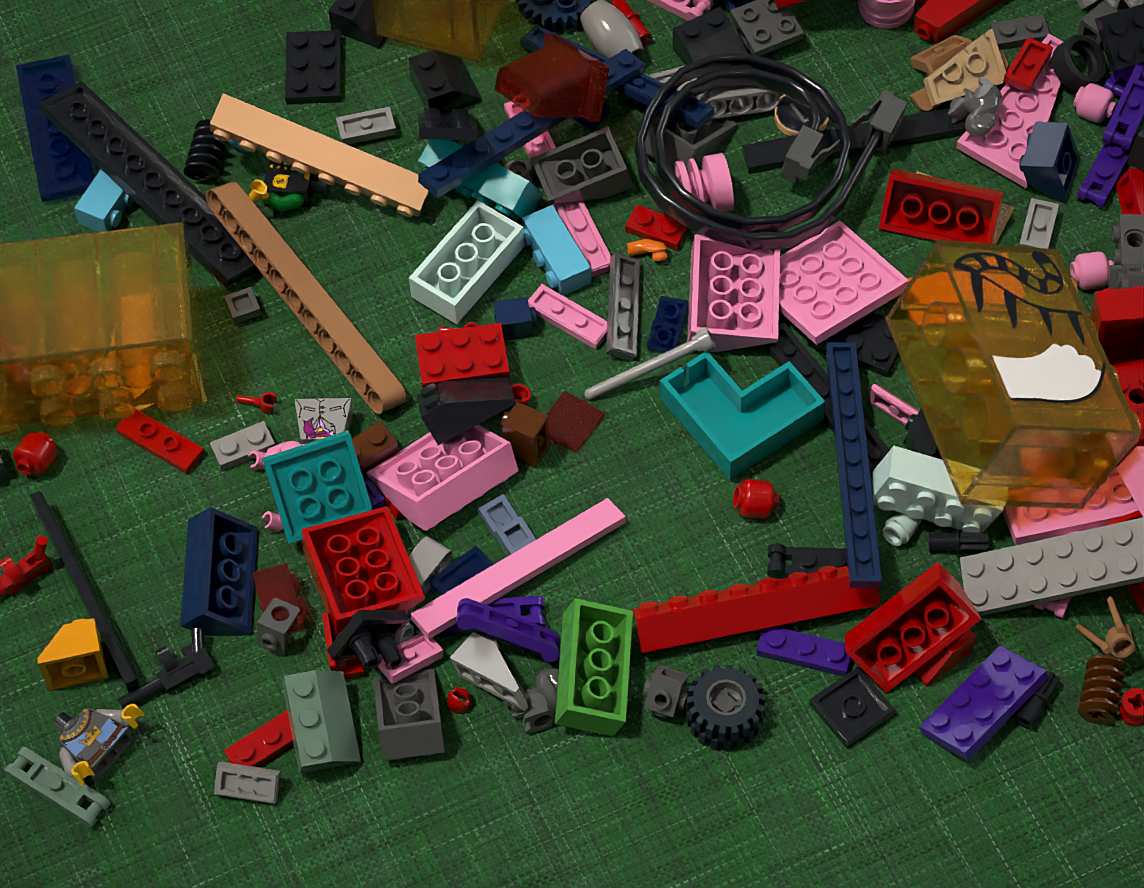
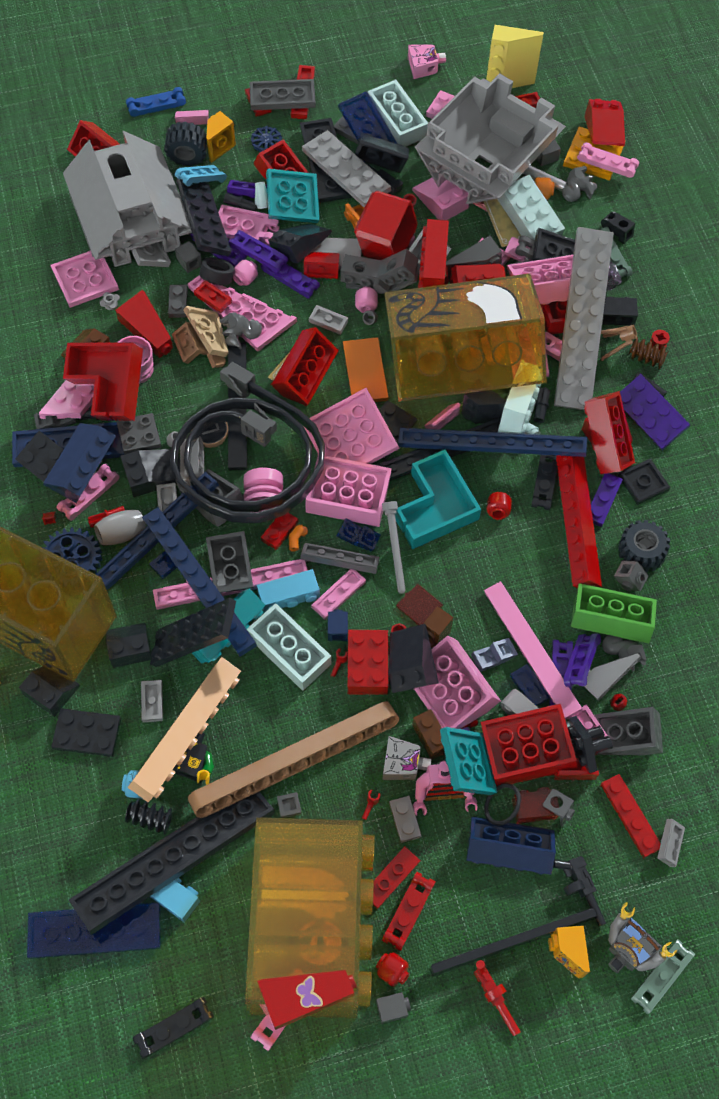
camera: 85 degrees left, 5 degrees up
(116, 467) = (408, 911): none -> red plate
(273, 562) = (499, 823): none -> black tyre
(320, 720) = (636, 788): sand green slope -> none
(555, 81) = (168, 558): clear red windscreen -> none
(1050, 159) = (286, 299): dark blue slope -> none

